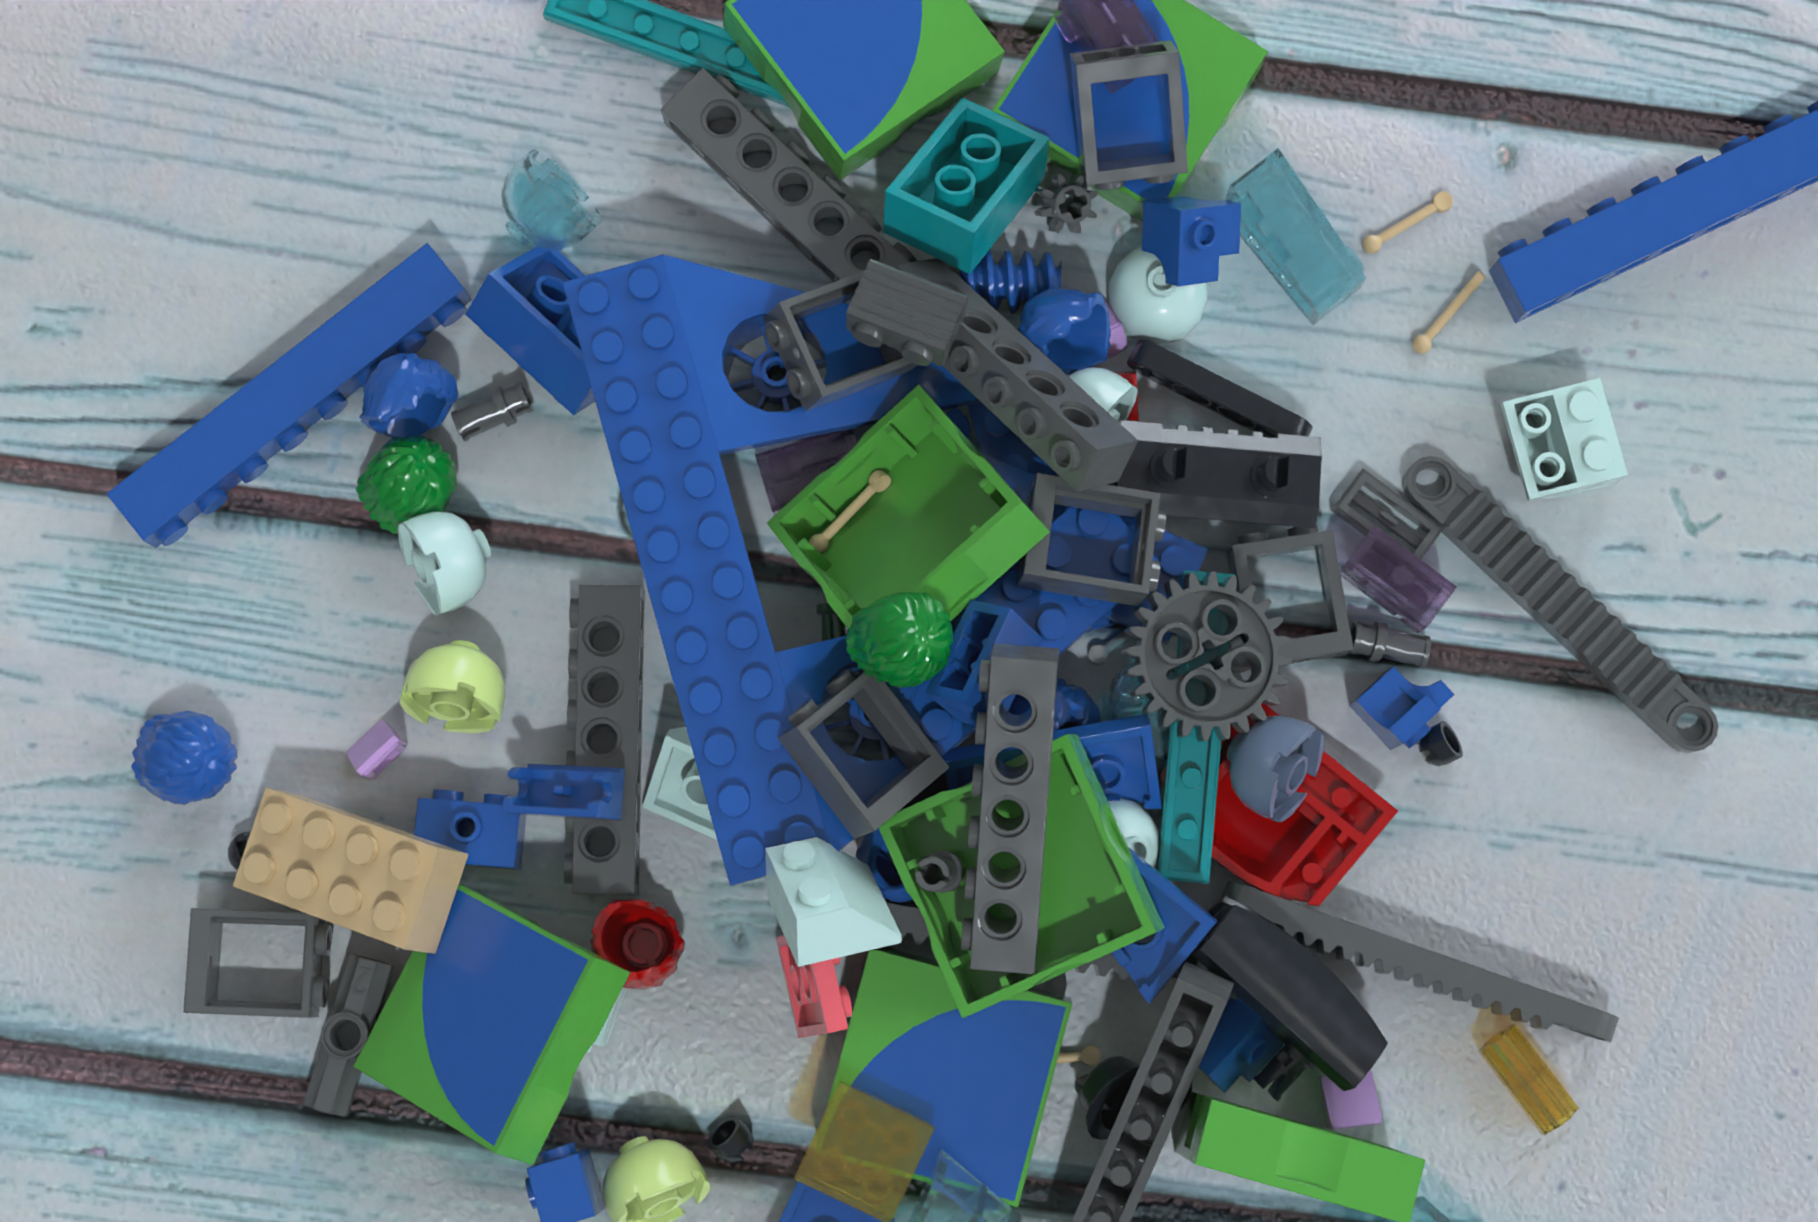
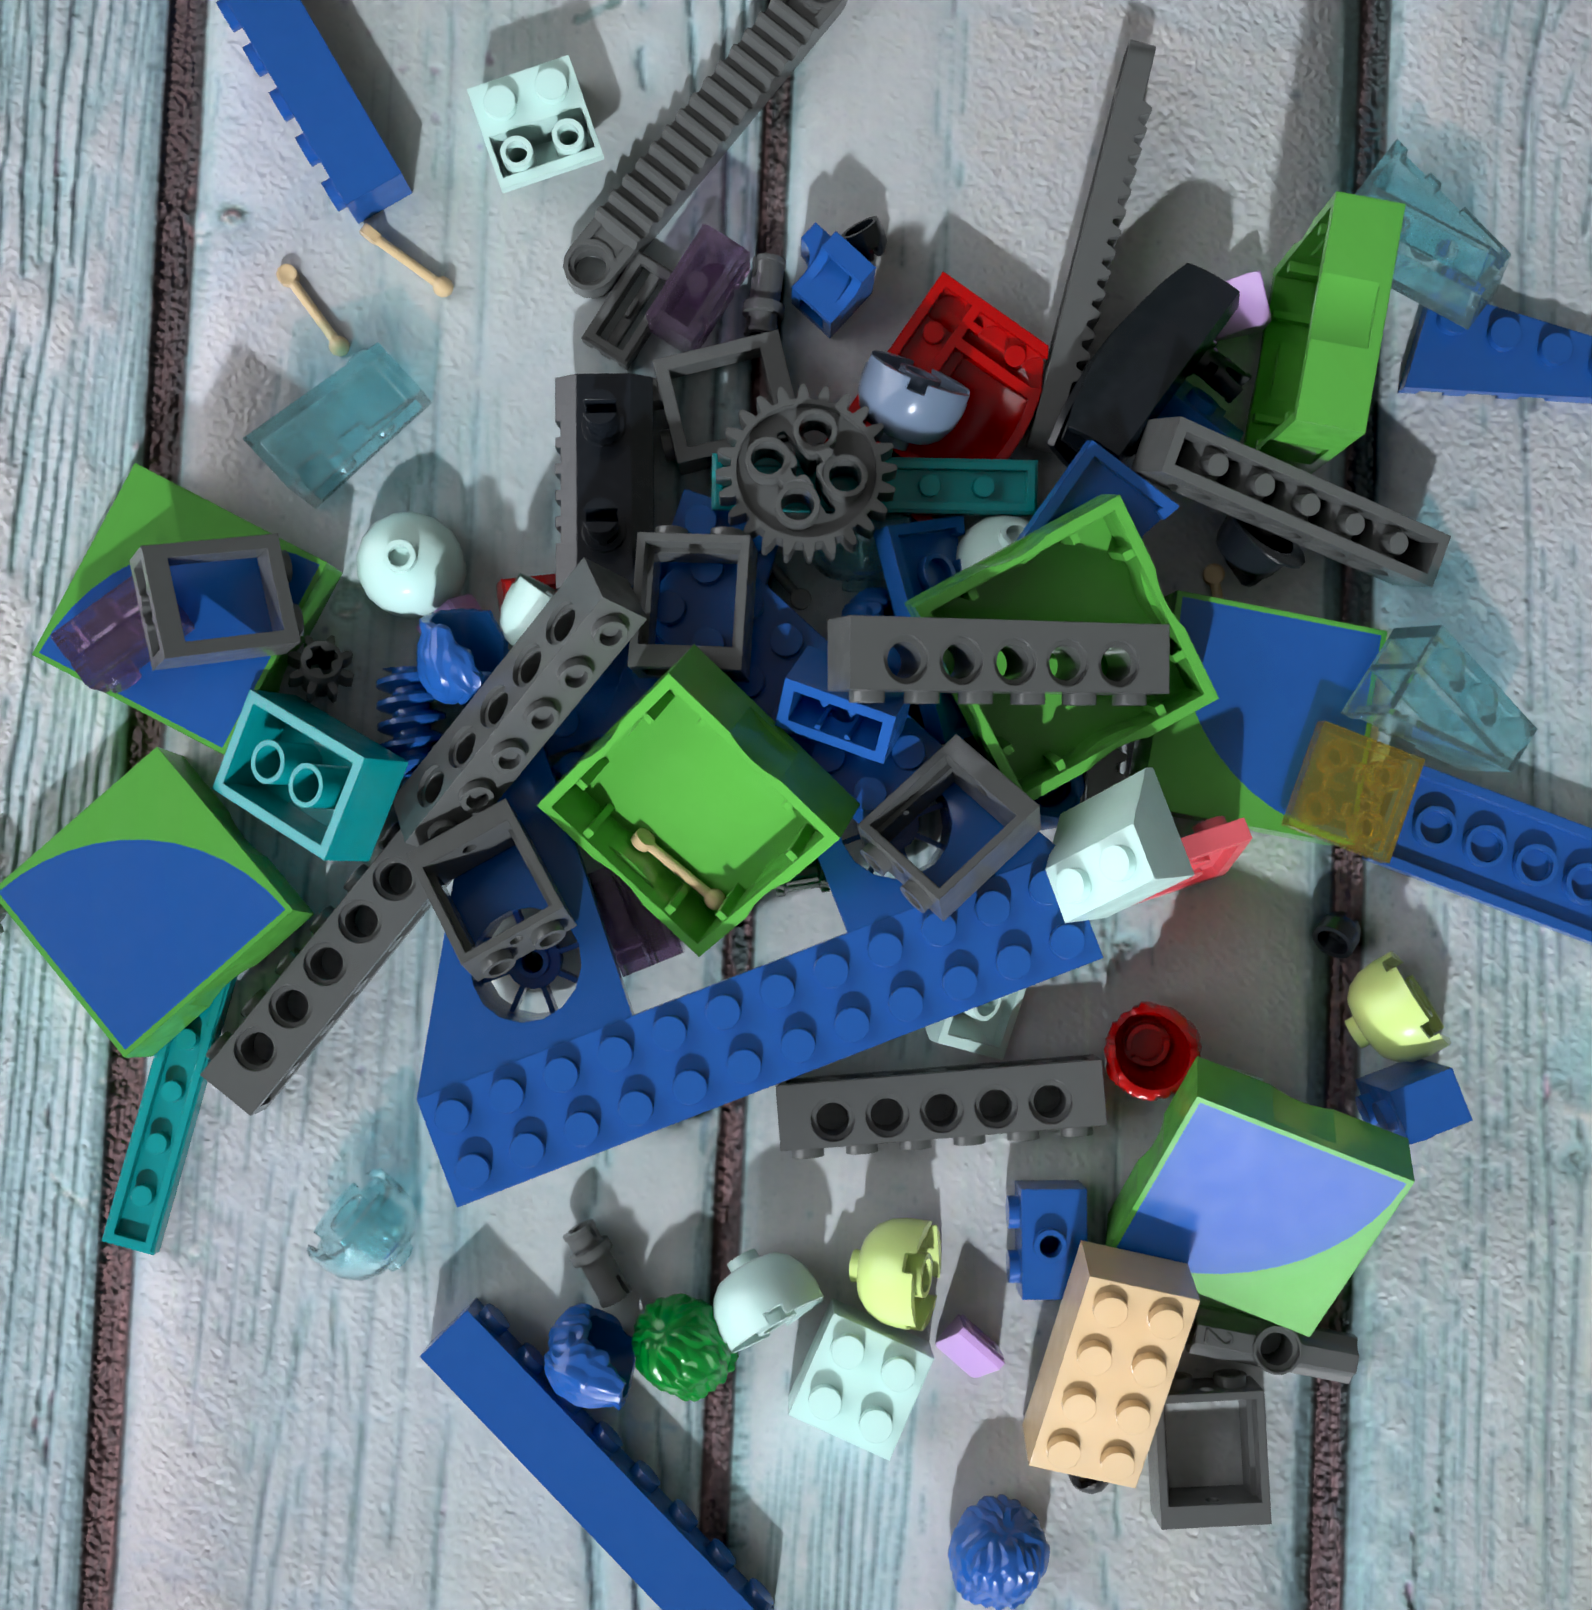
camera: 100 degrees left, 5 degrees up
(360, 642) = (860, 1379): none -> light aqua brick
(530, 319) = (494, 1238): blue slope -> none
(567, 792) = (1006, 1142): blue hinge -> none
(901, 639) = (830, 794): green hair -> none
(905, 314) = (462, 824): dark grey brick -> none
(951, 866) = (1066, 735): dark grey pin -> none
(1190, 236) = (347, 528): blue brick -> none
(1214, 392) = (513, 495): black beam -> none
(1528, 1079) = (1198, 129): clear yellow axle -> none

